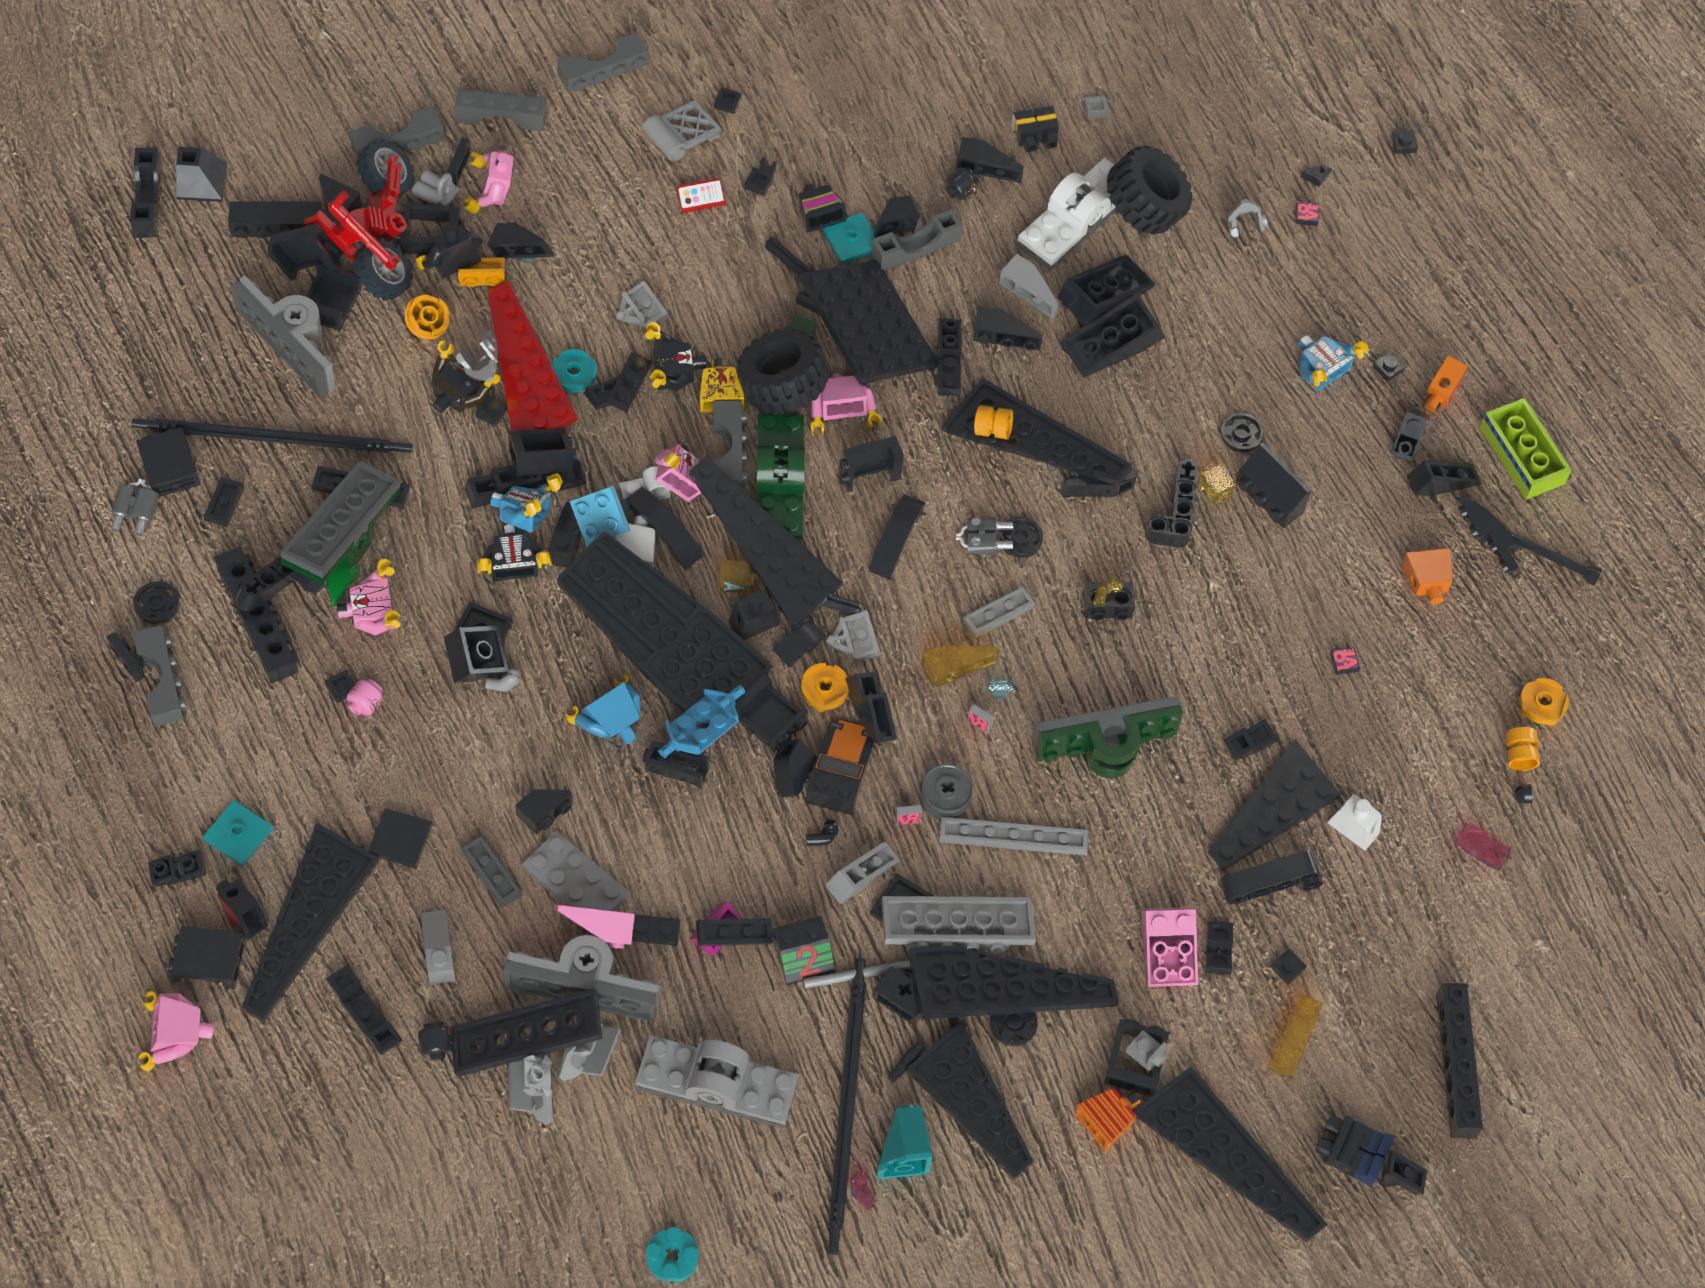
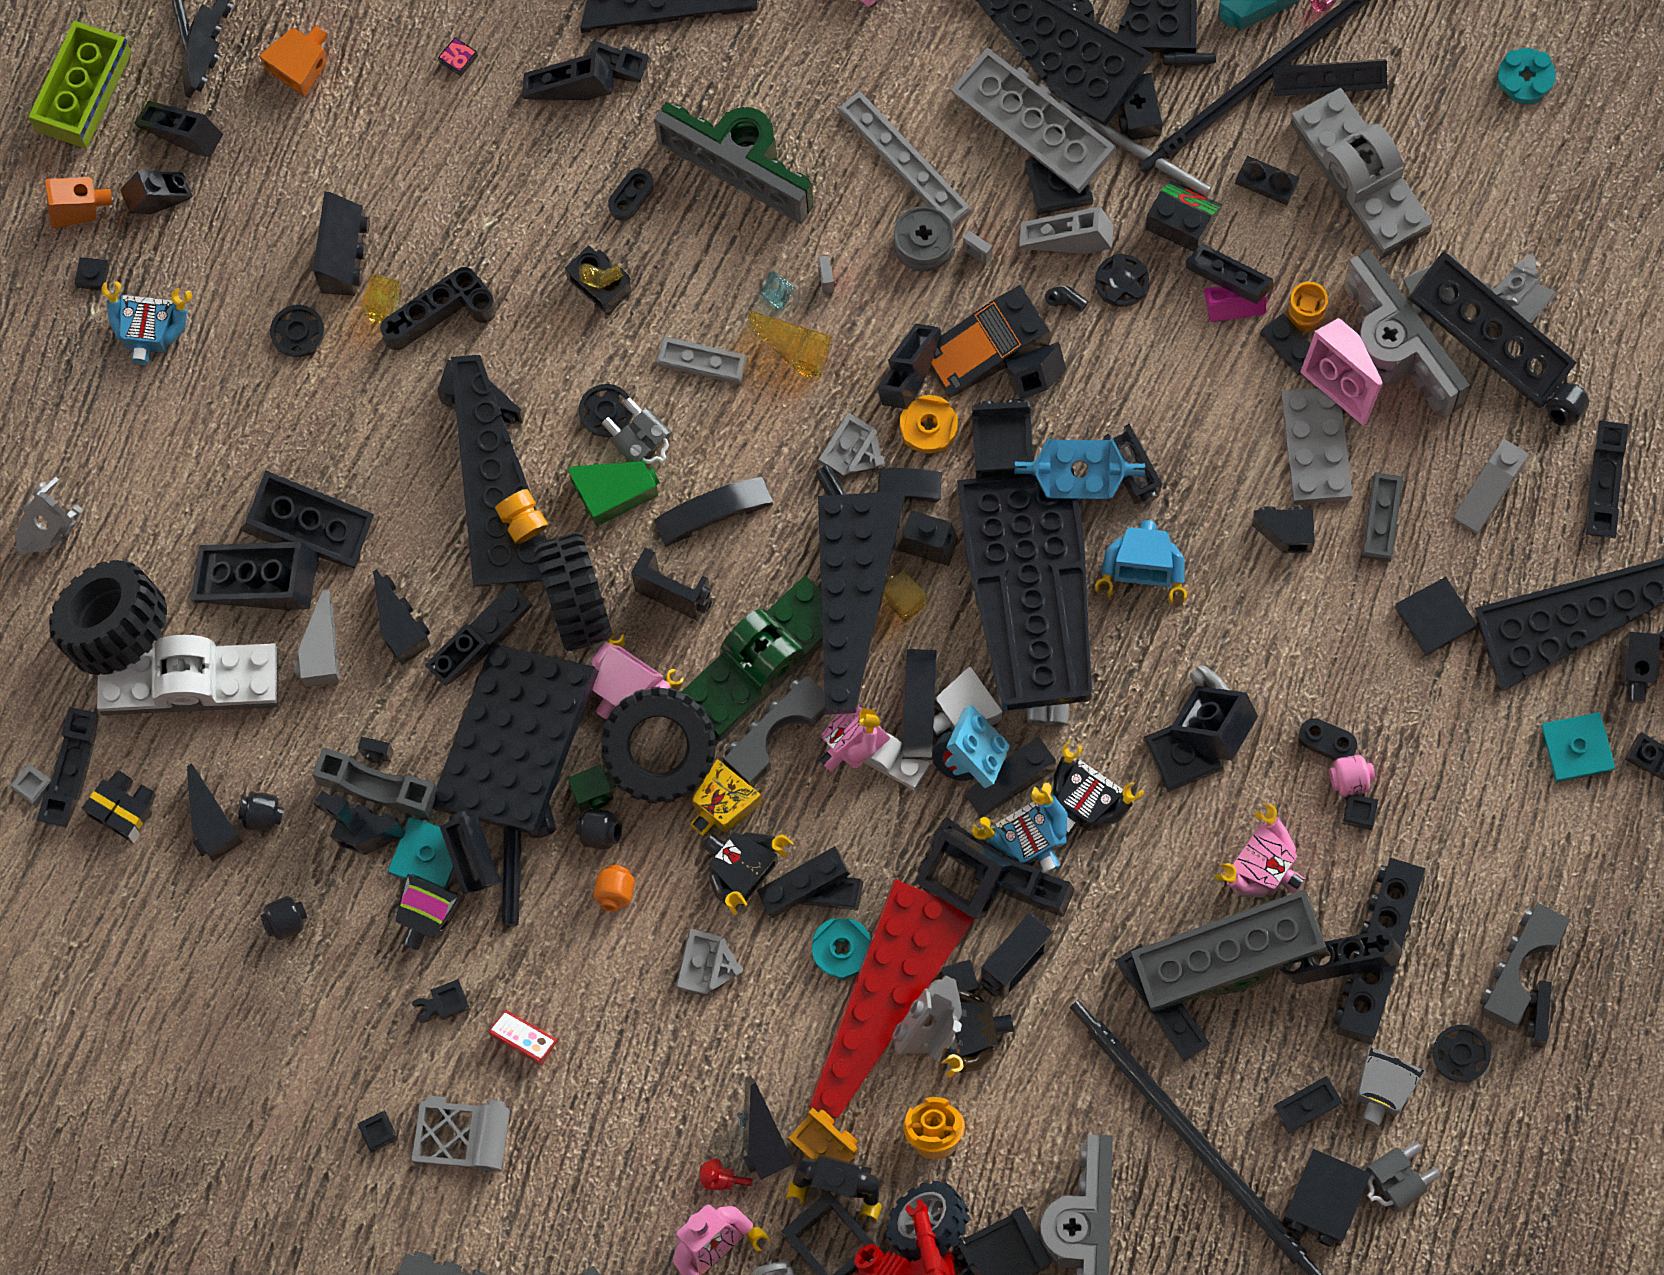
camera: 125 degrees left, 10 degrees up
(186, 546) = (1385, 1085): none -> light grey torso
(400, 710) = (1327, 740): none -> black plate
(466, 434) = (1016, 956): none -> black window
(525, 214) = (717, 1177): none -> red piece
(663, 954) = (1307, 306): none -> light orange wheel
(731, 297) = (614, 888): none -> orange head
(771, 318) = (599, 829): none -> black head
(773, 1025) = (1267, 180): none -> black tile
(800, 878) = (1122, 280): none -> black wheel
(800, 1128) = (1329, 77): none -> black plate
(825, 245) = (469, 853): none -> black window
(889, 146) = (283, 918): none -> black head
(916, 195) = (339, 810): none -> black wing
(917, 400) = (573, 591): none -> black tyre
(937, 260) = (375, 750): none -> black plate
(967, 493) = (613, 488): none -> green slope
(1081, 125) = (70, 769): none -> black slope
(1150, 668) = (629, 195): none -> black plate
(1262, 699) = (570, 80): none -> black slope

